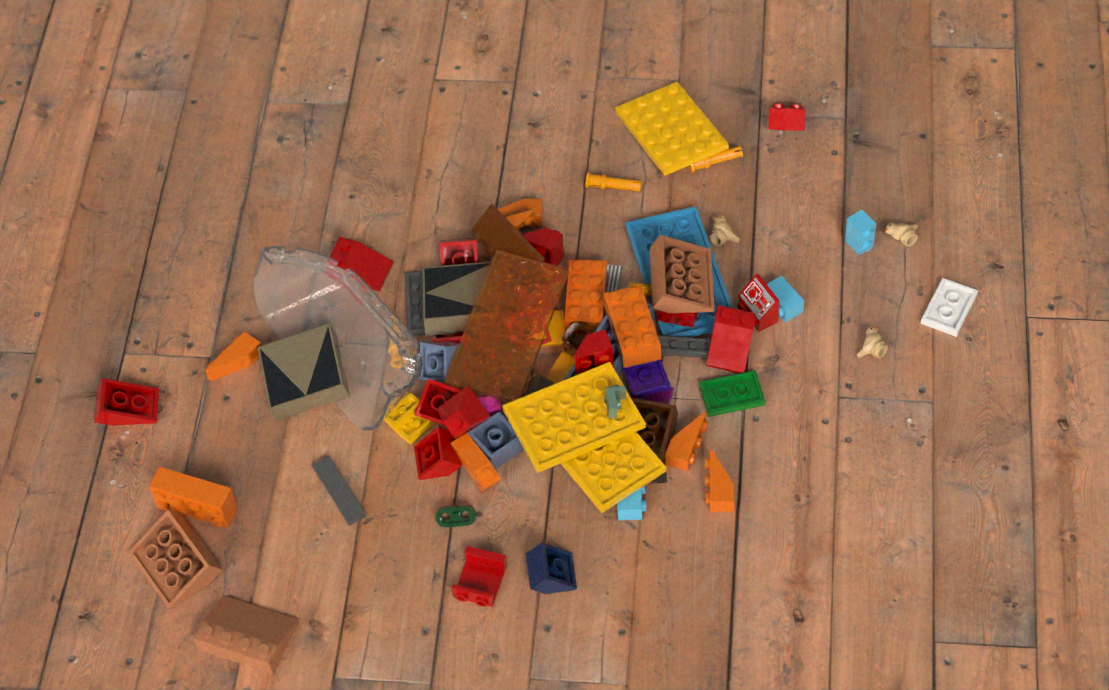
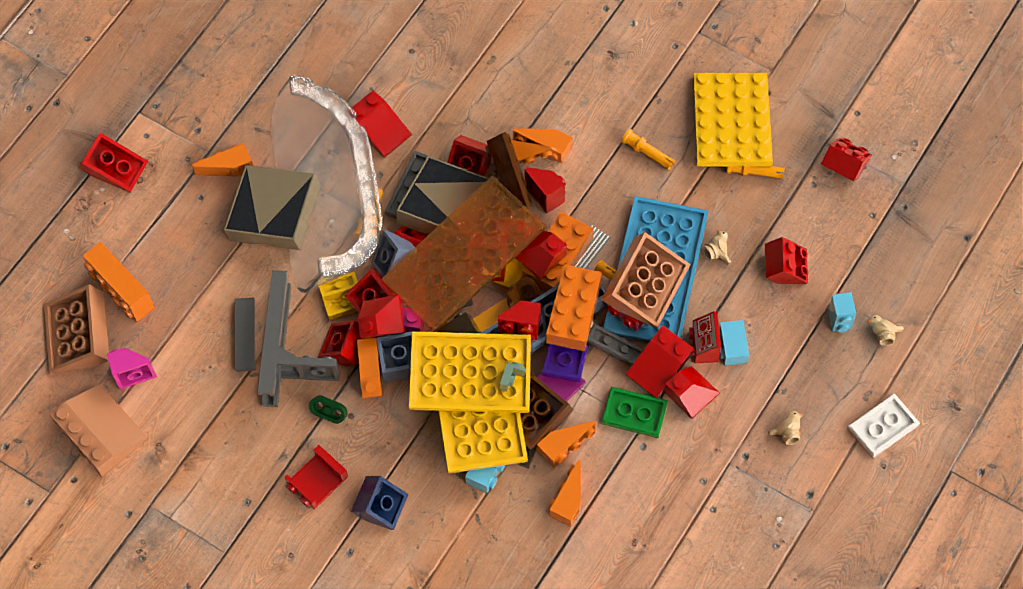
camera: 25 degrees right, 10 degrees up
(248, 563) = (130, 367): none -> dark pink slope
(415, 488) = (277, 361): none -> dark grey piece
(577, 296) = (543, 254): none -> red slope
(769, 355) = (690, 391): none -> red slope
(787, 217) = (786, 262): none -> red slope

